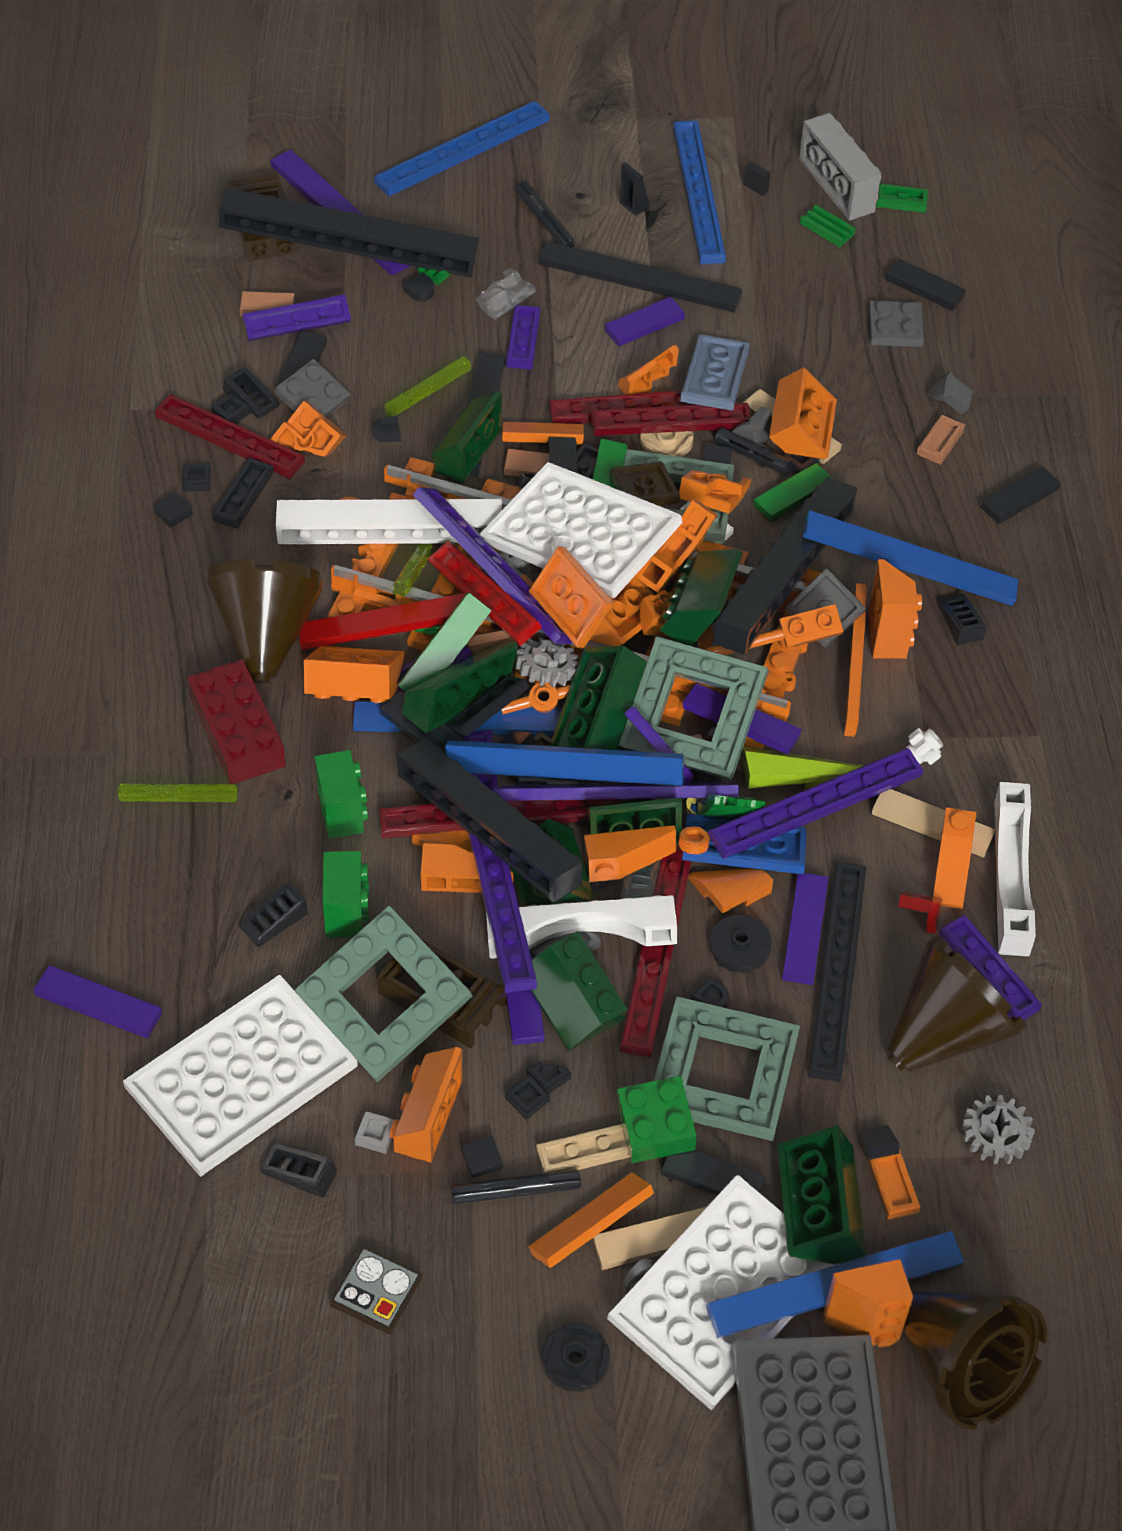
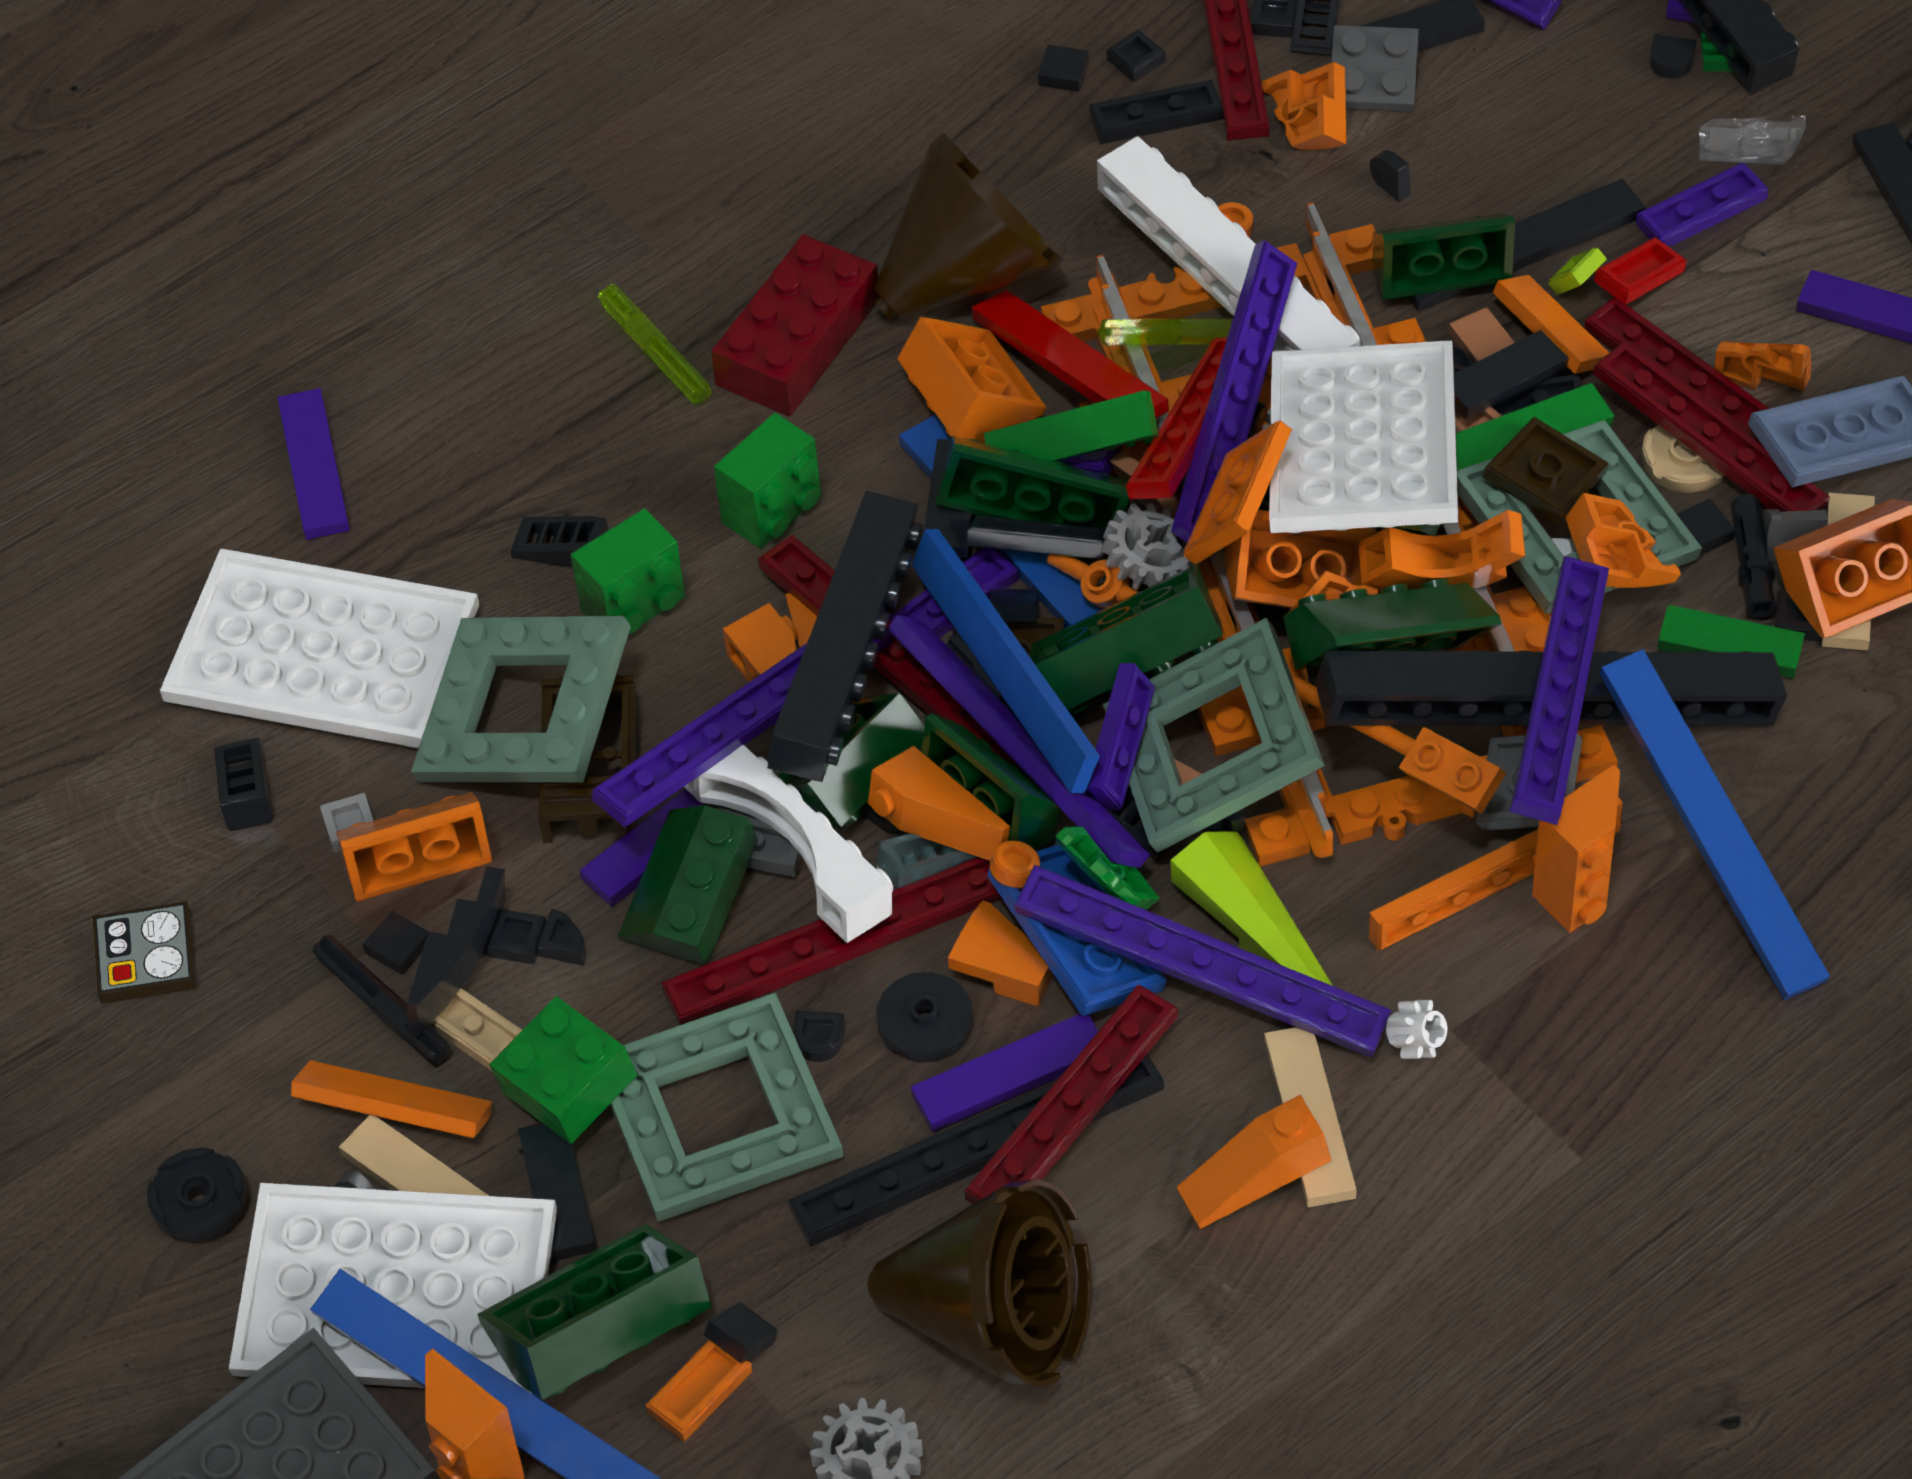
camera: 60 degrees right, 0 degrees up
(427, 386) = (1509, 167): clear neon green axle -> none
(522, 402) = (1576, 270): none -> lime tile
(528, 1131) = (452, 957): none -> black slope
(543, 381) = (1640, 270): none -> red tile
(763, 727) = (1267, 822): dark purple tile -> none
(808, 554) = (1559, 691): none -> dark purple tile
(854, 912) = (1078, 1093): none -> dark red tile
(924, 904) = (1152, 1176): red tile -> none
(961, 634) = (1677, 976): black slope -> none
(973, 946) = (1124, 1312): dark purple tile -> none
(1014, 900) = (1229, 1282): white arch -> none

